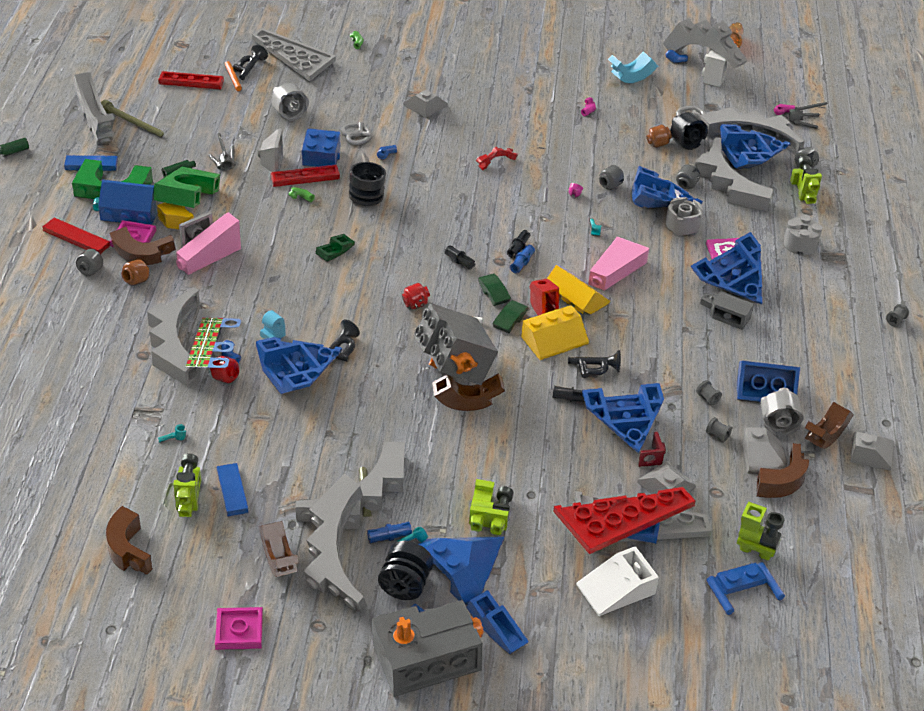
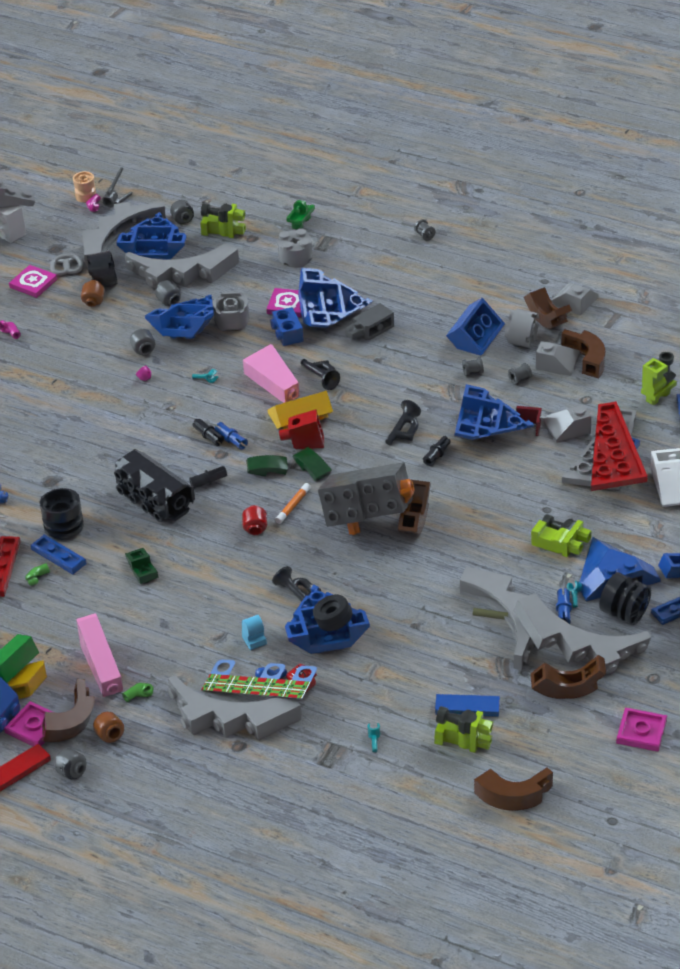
camera: 65 degrees left, 0 degrees up
(187, 281) = (138, 690): none -> bright green arm
(194, 227) = (66, 662): light grey slope -> none
(296, 360) = (332, 612): none -> black tyre
(330, 200) = (58, 554): none -> blue tile
(424, 223) = (158, 488): none -> black brick
(485, 160) = (57, 405): red piece -> none
(554, 332) = (352, 439): yellow slope -> none
(630, 299) = (329, 376): none -> black piece
(658, 104) = (33, 281): none -> dark pink tile
(686, 255) = (287, 326): none -> blue brick
(796, 94) = (84, 186): none -> light nougat wheel
(856, 226) = (300, 214): none -> green hips

